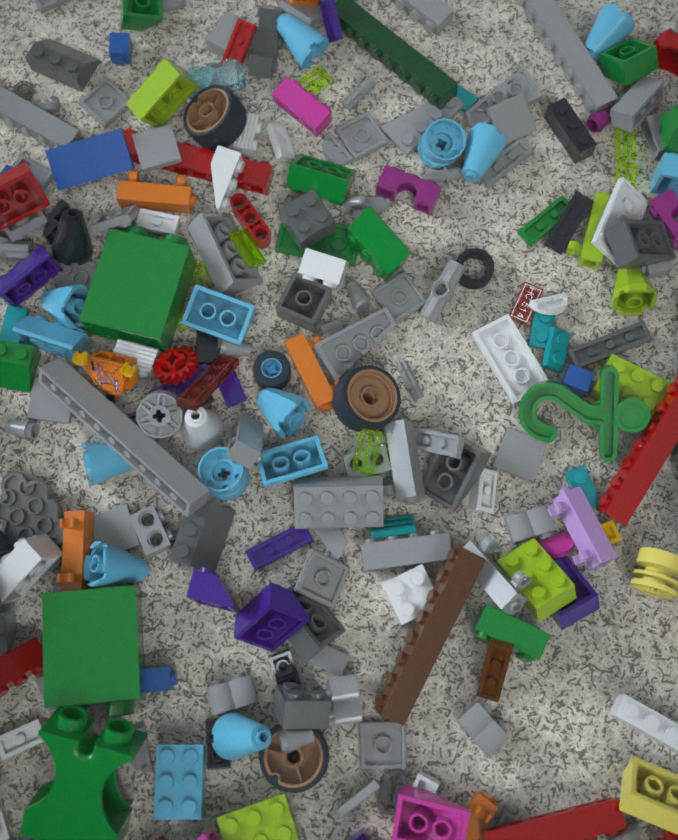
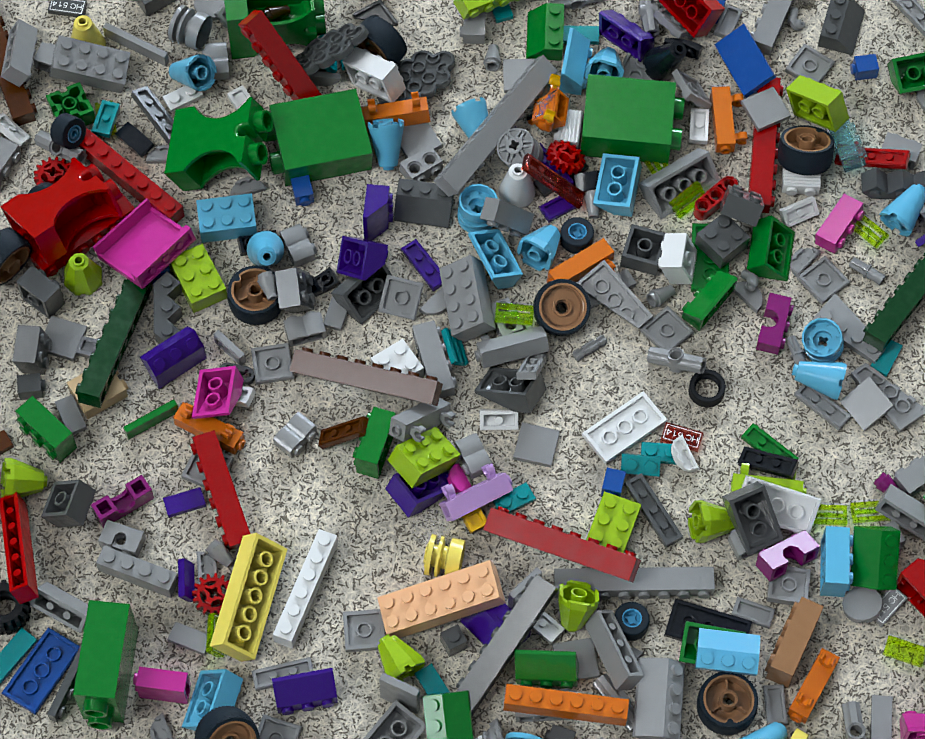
camera: 80 degrees right, 10 degrees down
(225, 169) = (749, 164): white slope -> none
(275, 189) = (742, 205): none -> dark grey brick
(570, 130) = (866, 456): black brick -> none
(604, 415) = (583, 499): green piece -> none

